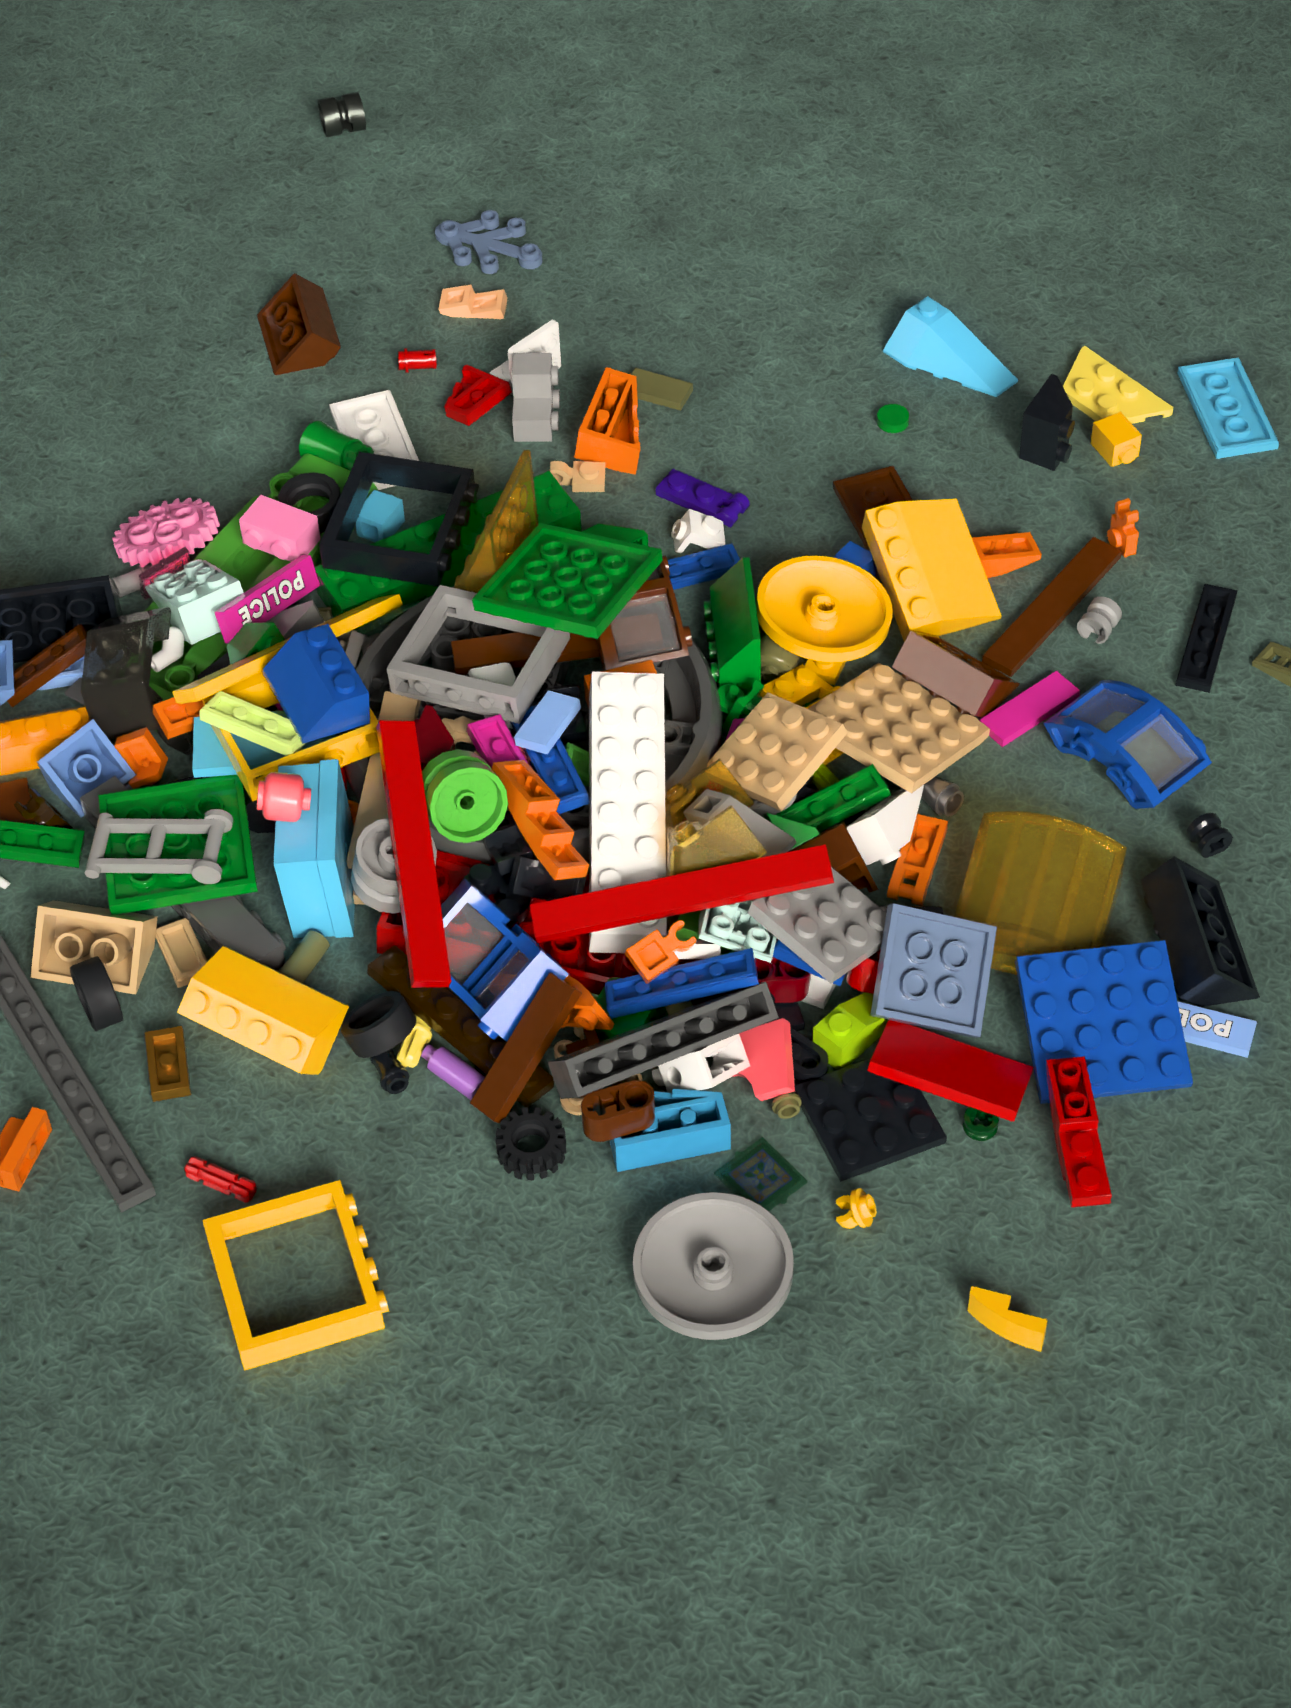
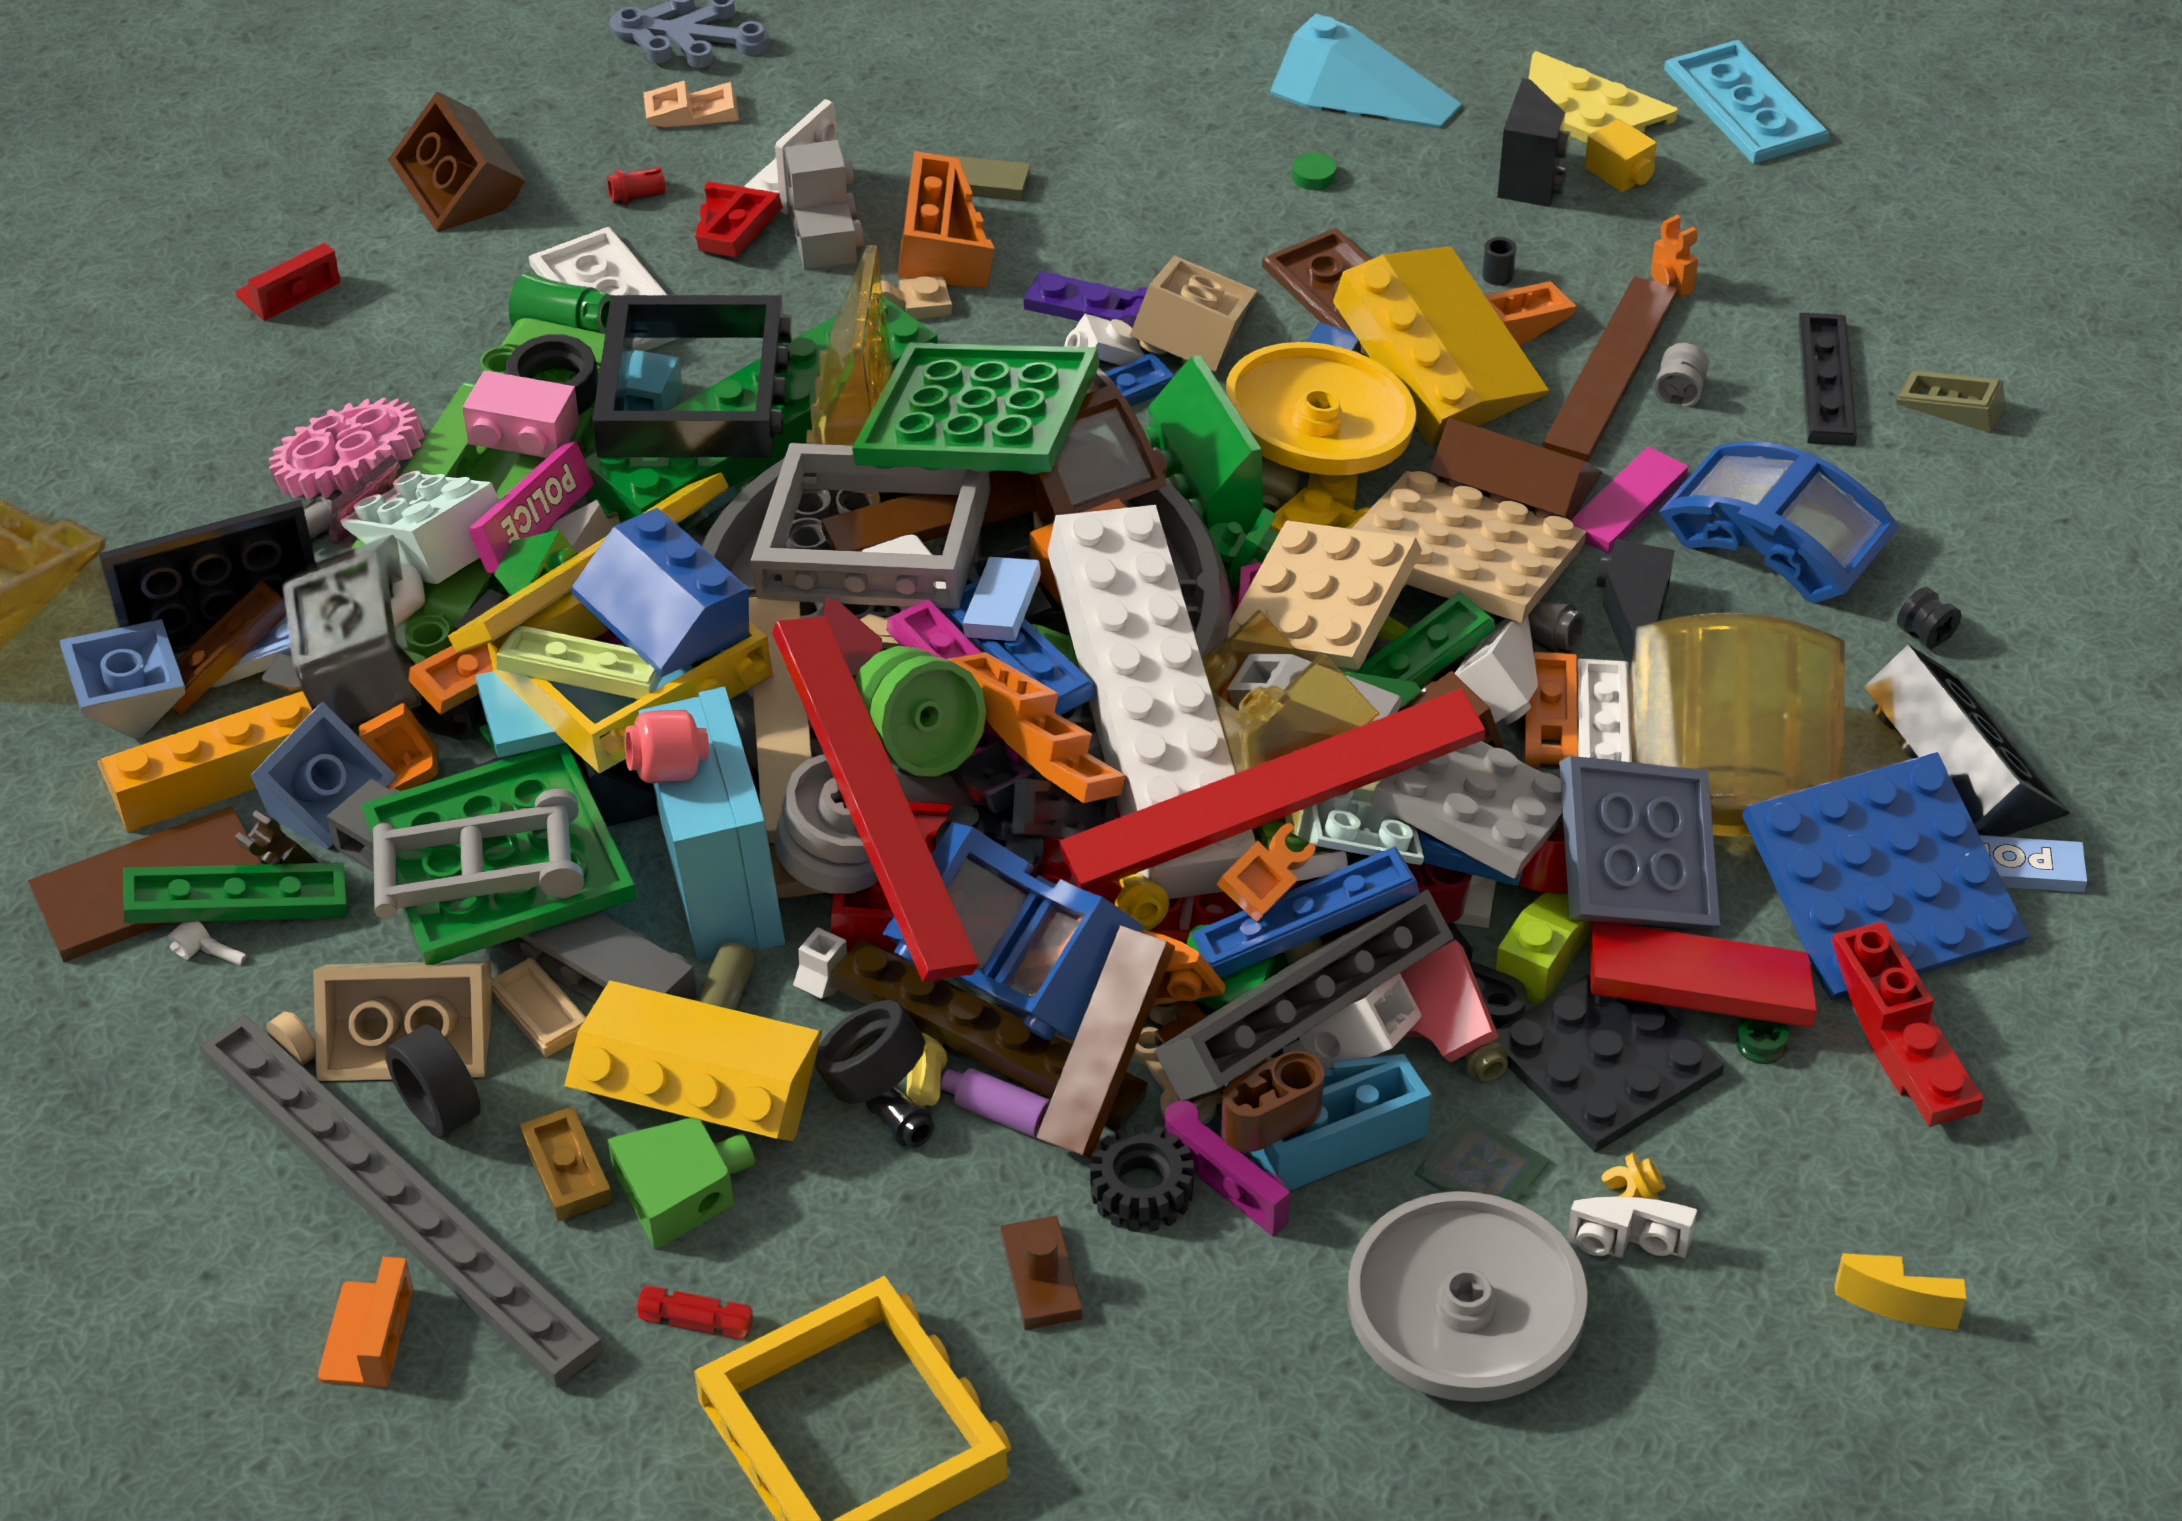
camera: 15 degrees left, 5 degrees down
(20, 947) = (292, 1037): none -> tan tile
(166, 401) = (291, 282): none -> red panel
(234, 1086) = (677, 1175): none -> bright green torso
(364, 952) = (817, 960): none -> white piece
(447, 1194) = (1041, 1272): none -> reddish brown tile
(581, 954) = (1143, 900): none -> yellow plate
(602, 1169) = (1227, 1171): none -> magenta plate
(766, 517) = (1191, 312): none -> tan slope
(830, 1234) = (1608, 1223): none -> white slope
(949, 871) = (1603, 709): none -> white tile
(999, 510) = (1499, 261): none -> black hinge
(1009, 776) = (1635, 588): none -> black slope

